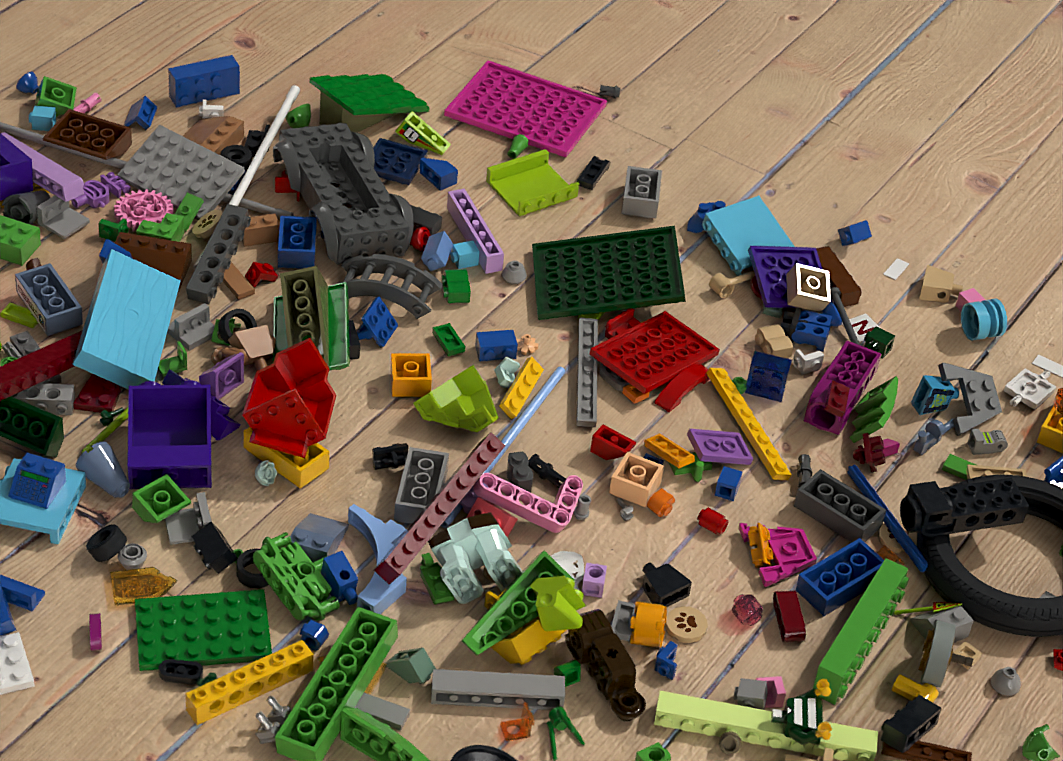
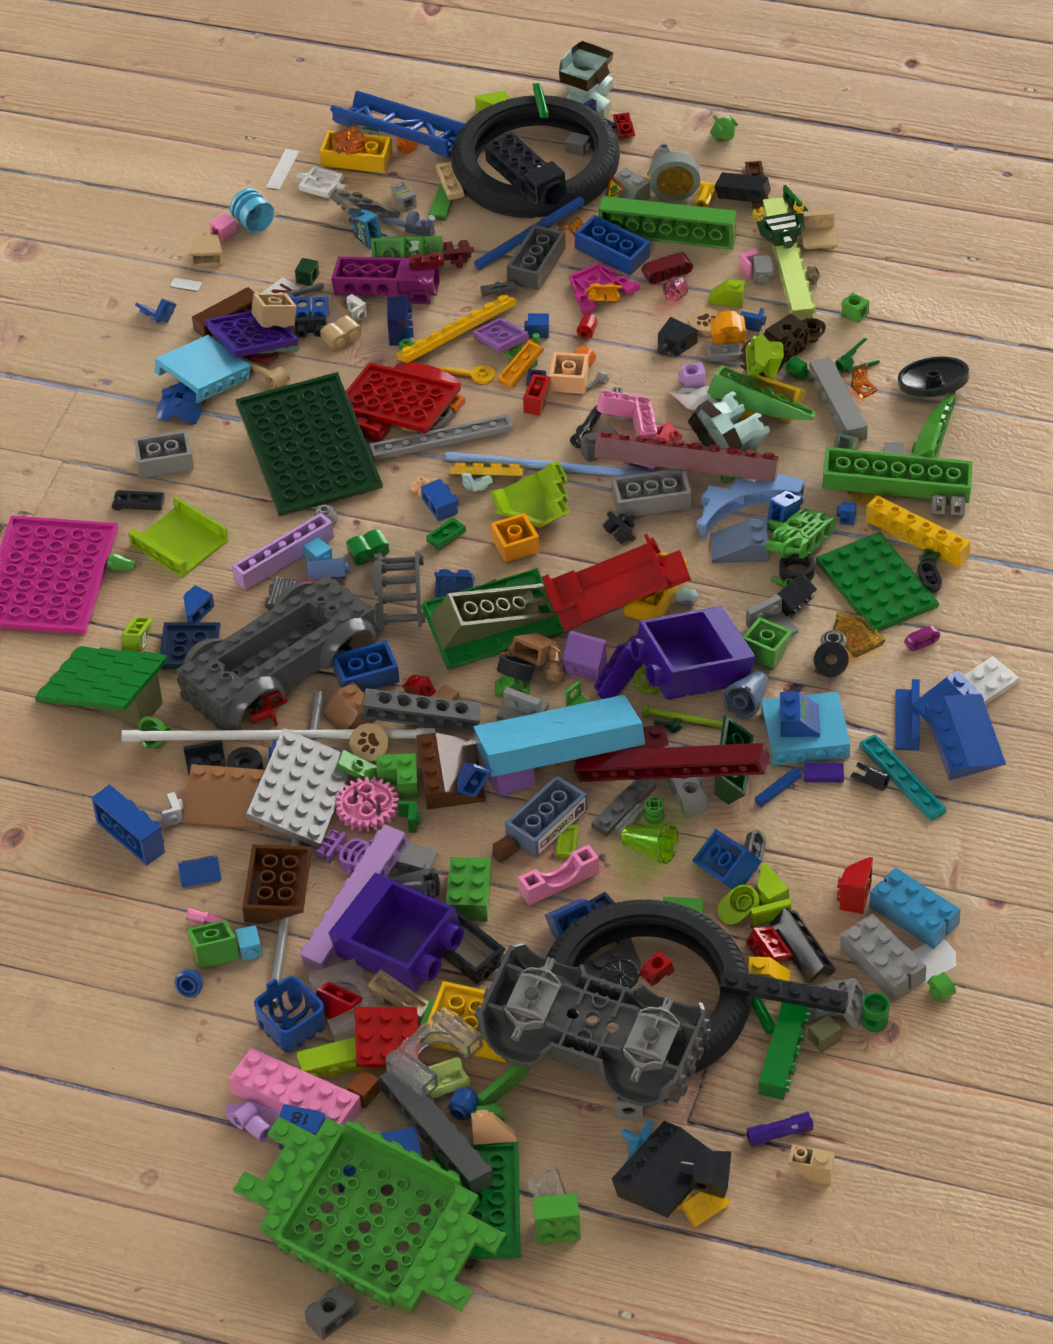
camera: 100 degrees left, 5 degrees up
(676, 428) = (480, 374): none -> yellow piece
(720, 656) = (728, 293): none -> lime slope

